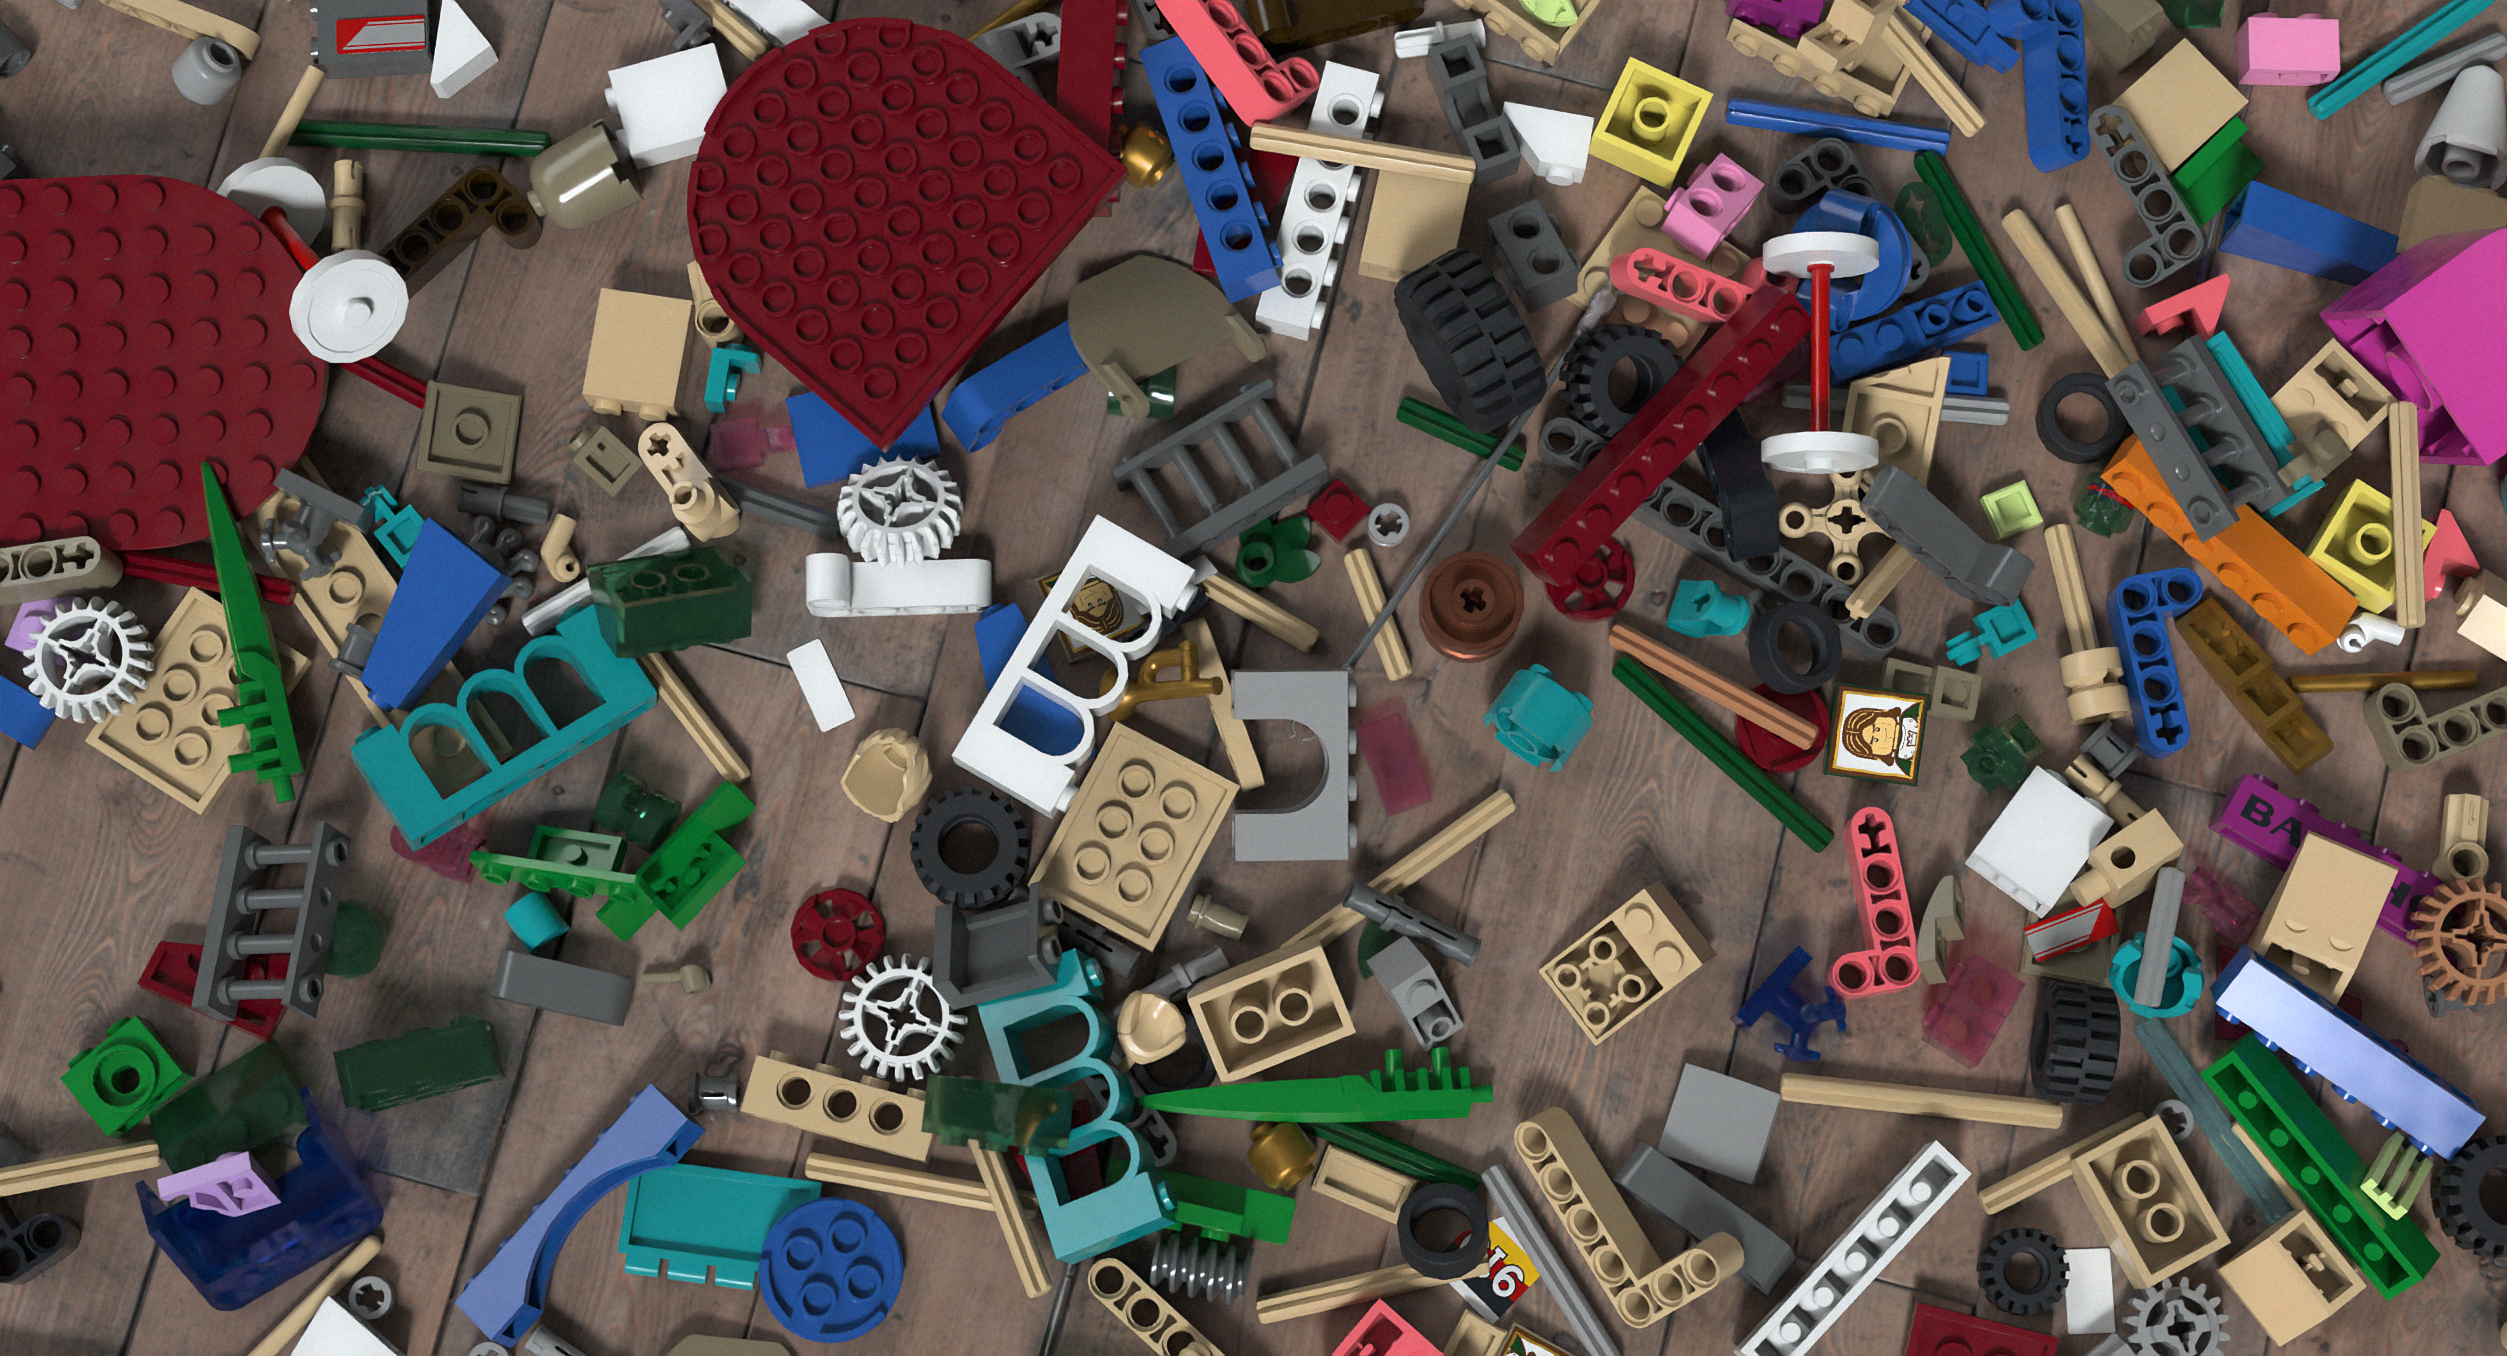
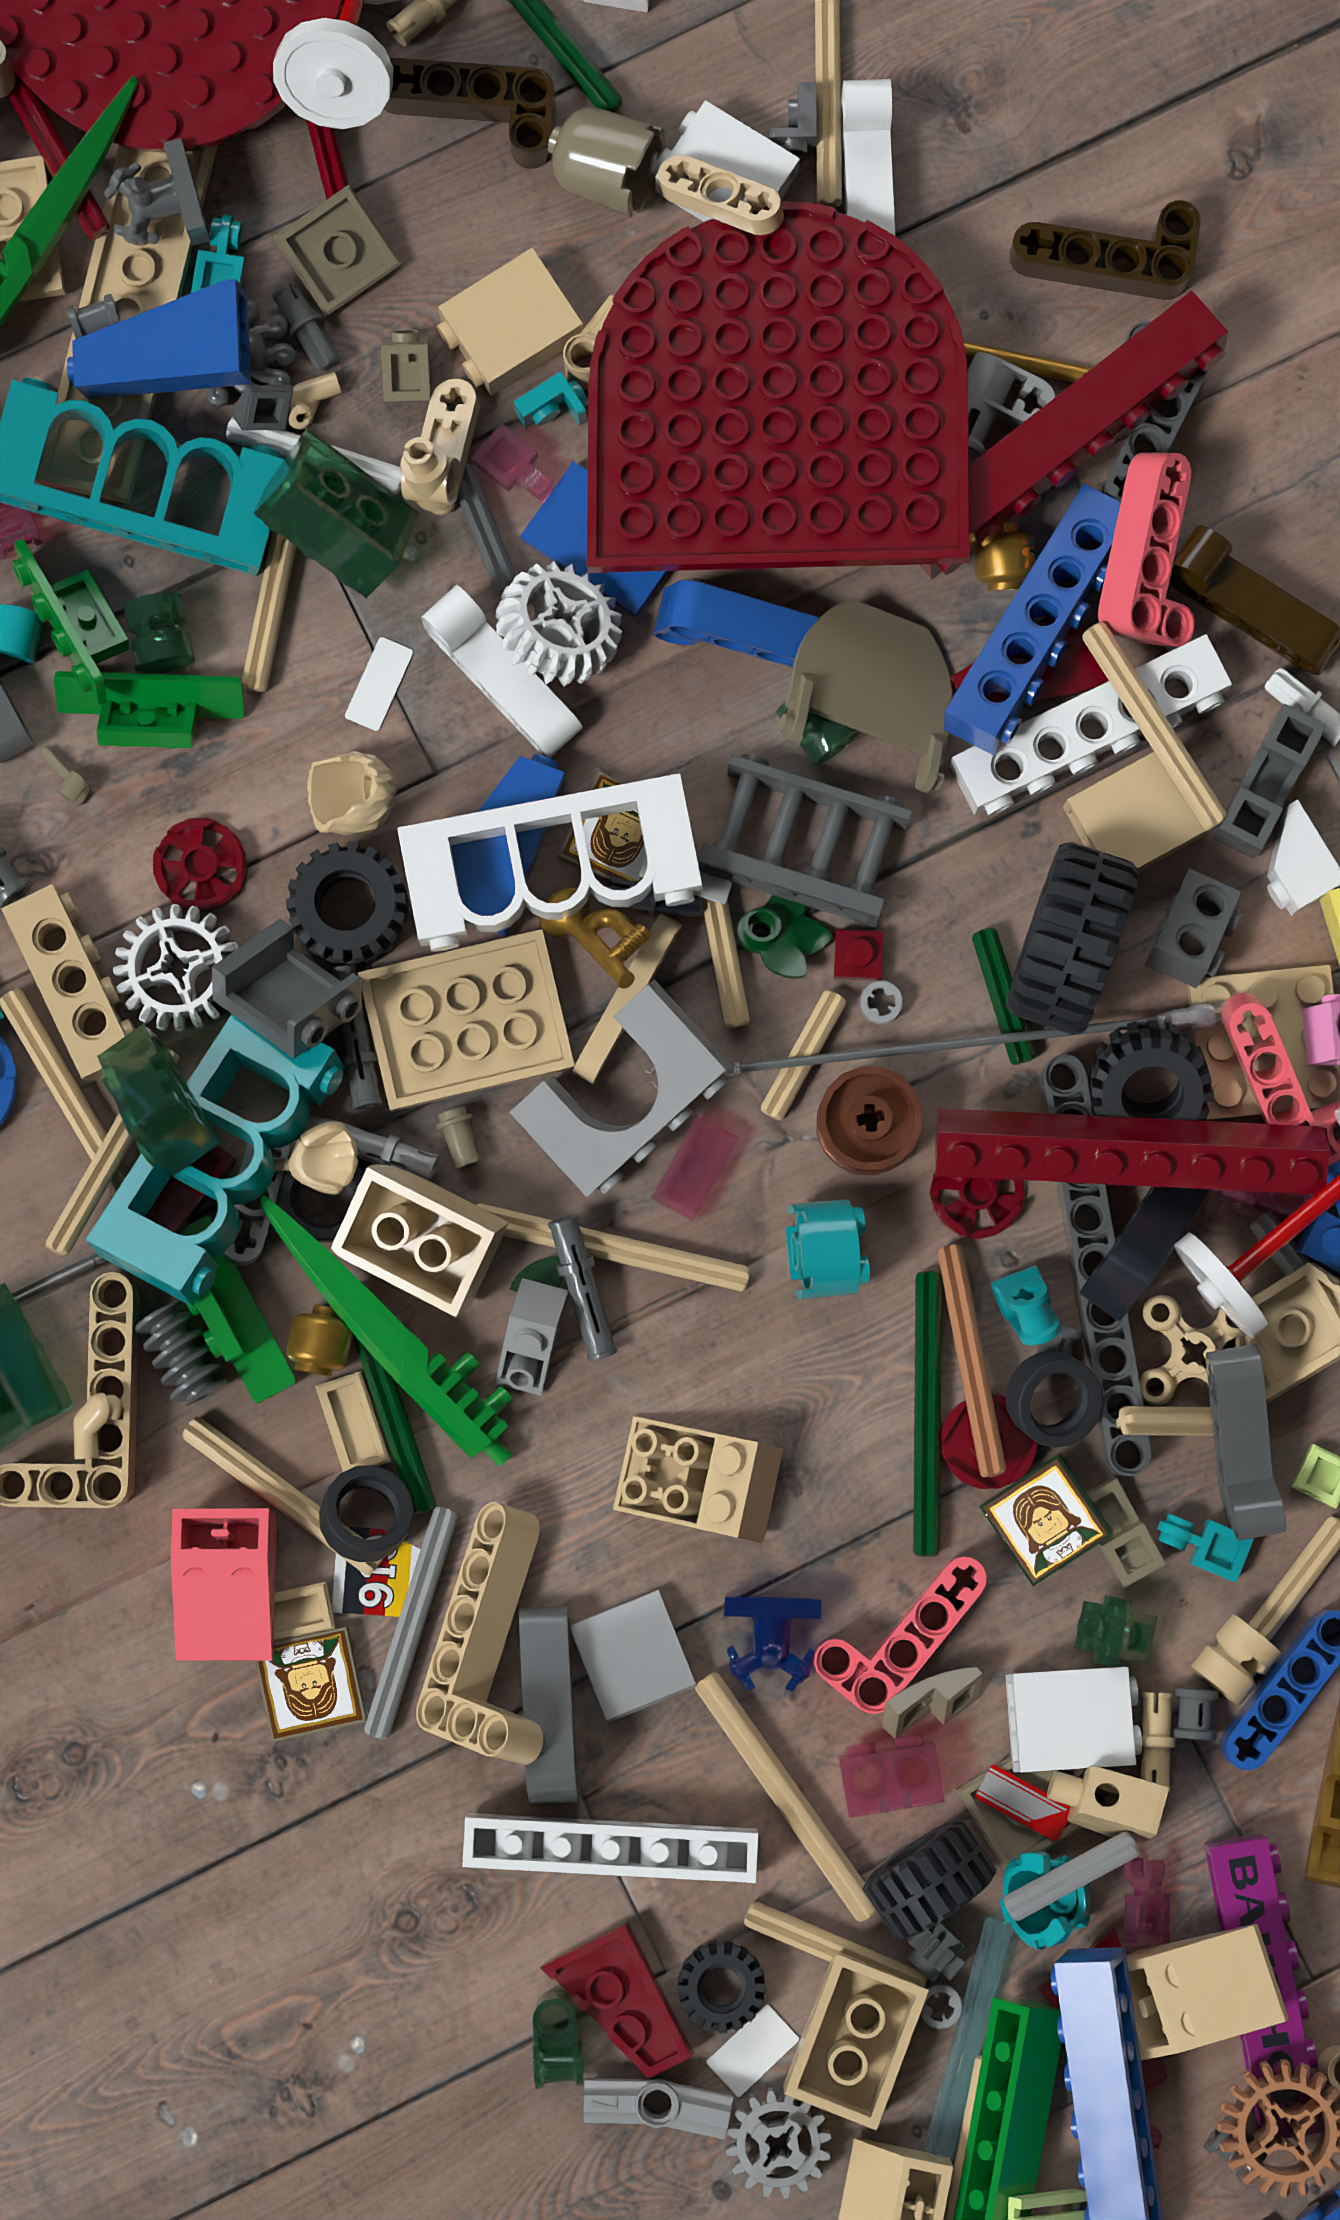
camera: 55 degrees right, 5 degrees up
(538, 587) = (263, 407): none -> dark grey slope
(671, 116) = (731, 211): none -> tan beam
(2133, 1088) = (936, 1952): none -> dark grey gear

